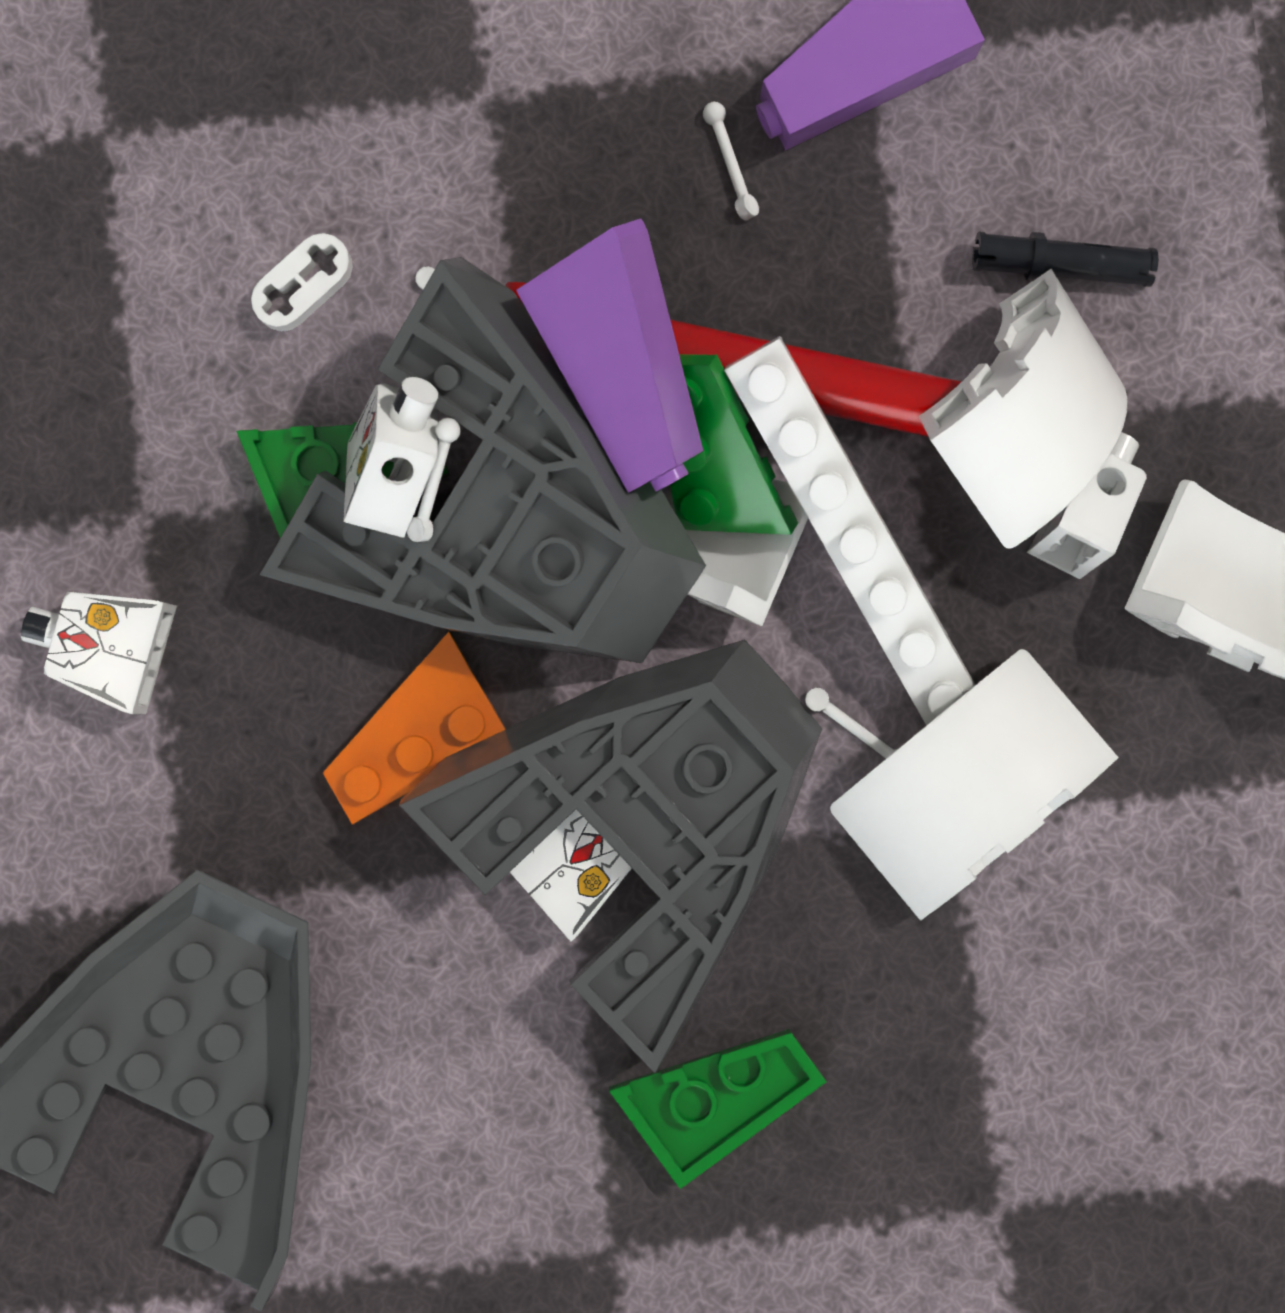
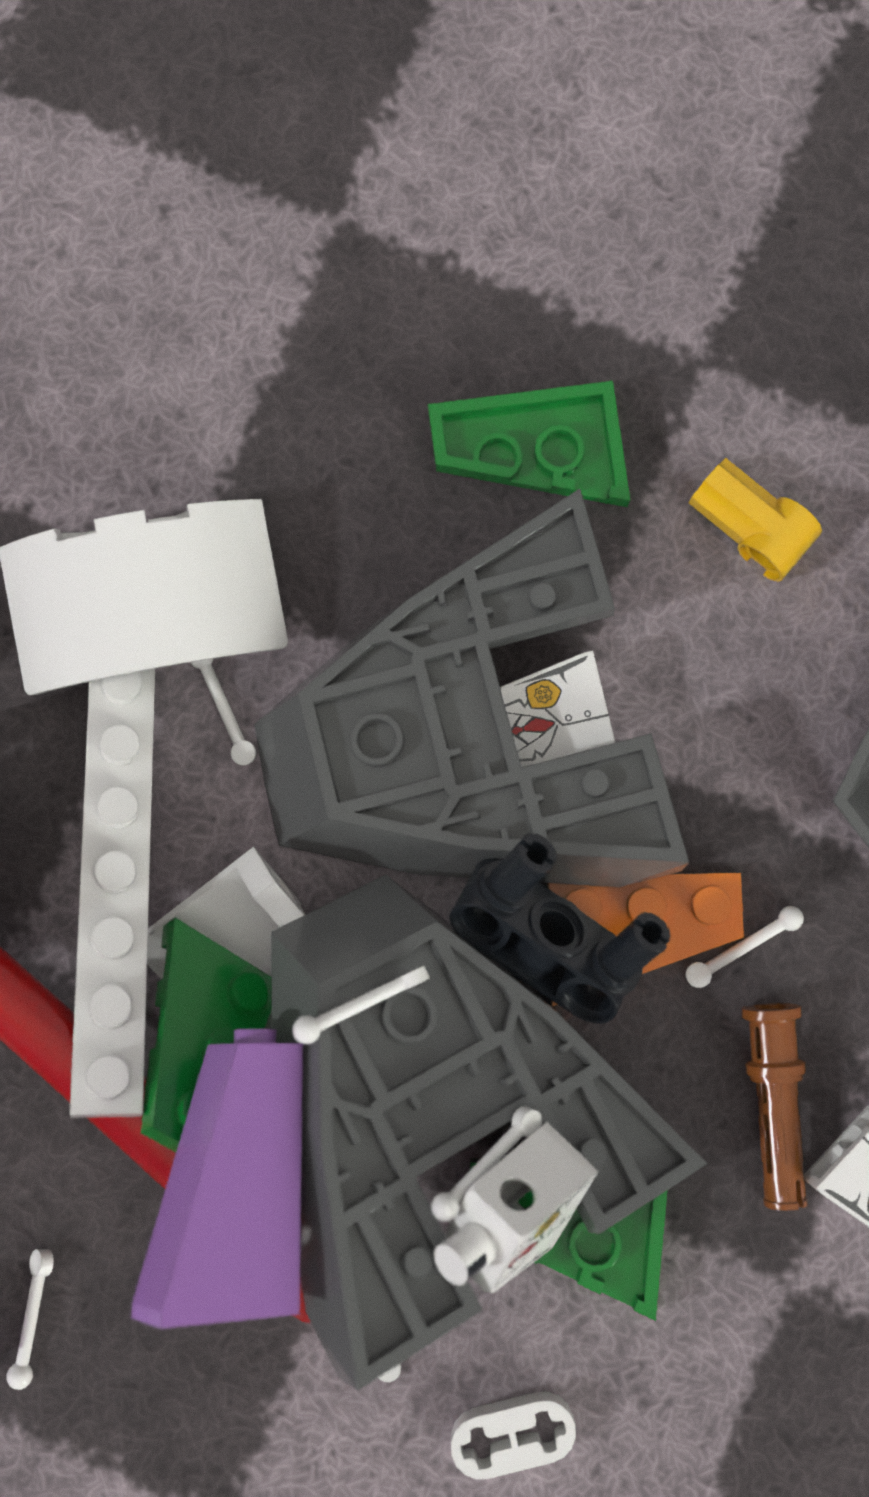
camera: 145 degrees left, 5 degrees down
(240, 677) = (776, 1075): none -> dark orange pin
(342, 723) = (700, 974): none -> white hinge
(479, 683) = (549, 938): none -> black piece
(483, 1131) = (764, 527): none -> yellow piece
(629, 507) = (308, 1029): none -> white hinge

